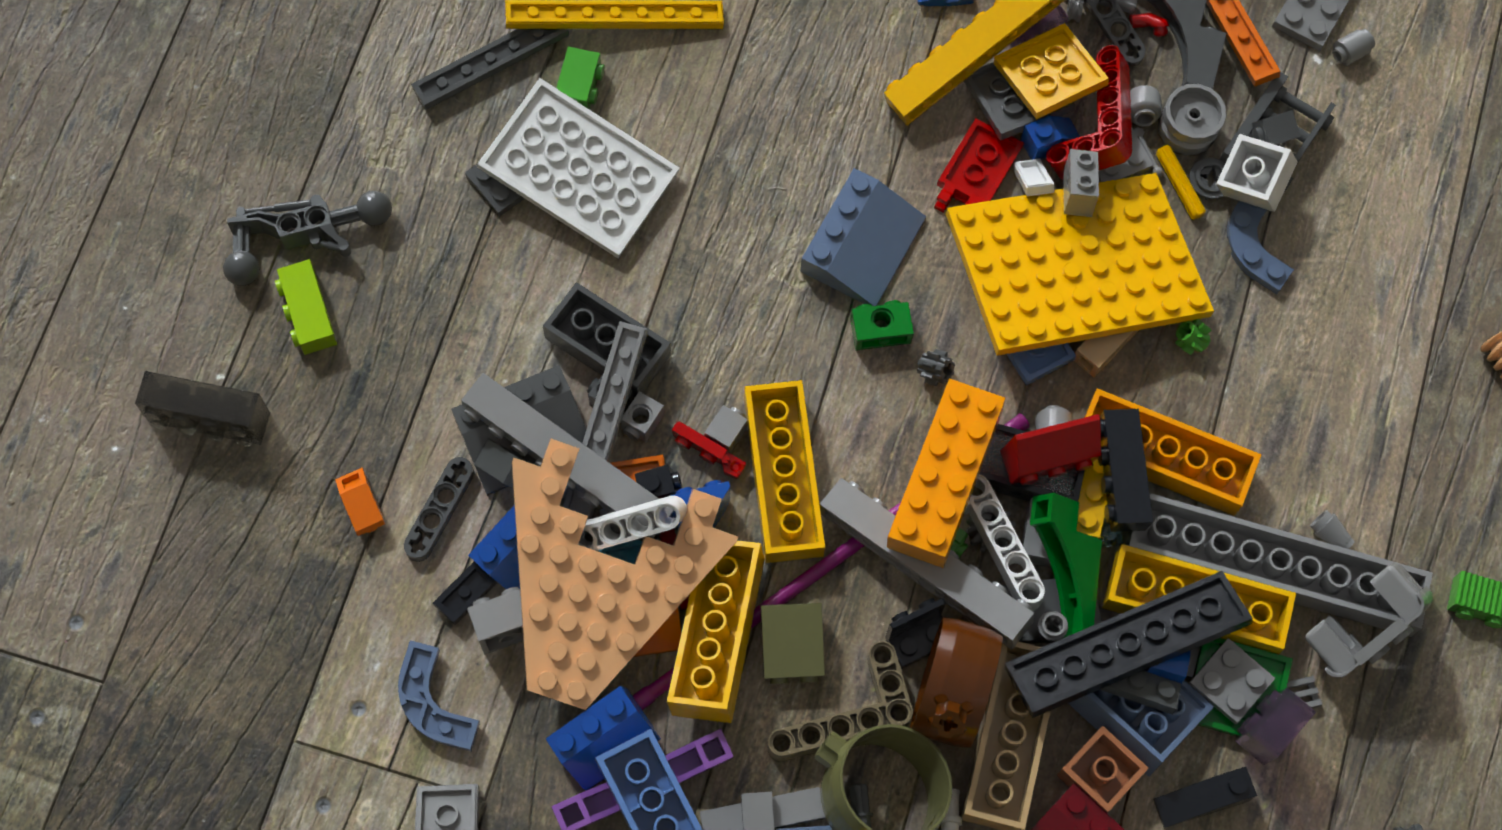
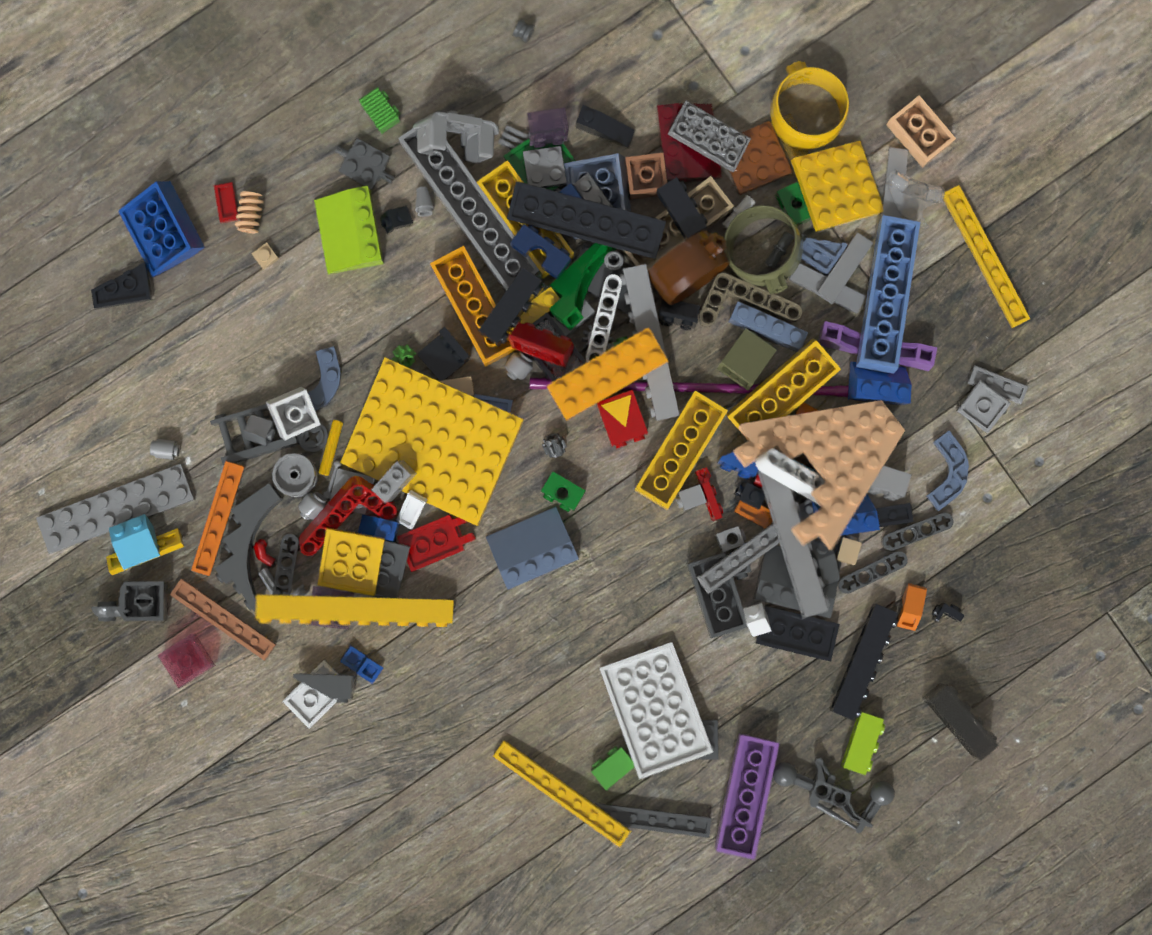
camera: 140 degrees left, 15 degrees up
(306, 531) = (951, 611): none -> black bracket
(372, 398) = (864, 661): none -> black brick
(402, 153) = (746, 796): none -> medium lavender brick
(422, 600) = (917, 532): none -> dark grey beam
(487, 507) = (848, 550): none -> tan brick
(500, 356) = (799, 634): none -> black plate
(538, 341) = (757, 619): none -> white brick
(798, 702) = (768, 327): none -> sand blue brick
(880, 457) = (622, 419): none -> red brick
(1025, 751) = (682, 208): none -> black brick
(1123, 568) = (529, 240): none -> dark blue arch
(1149, 374) = (444, 355): none -> black bracket
(1344, 487) = (396, 219): none -> black bracket
(1382, 434) = (349, 230): none -> lime slope
(1439, 523) = (364, 164): none -> dark grey plate
(1446, 332) = (265, 256): none -> tan plate

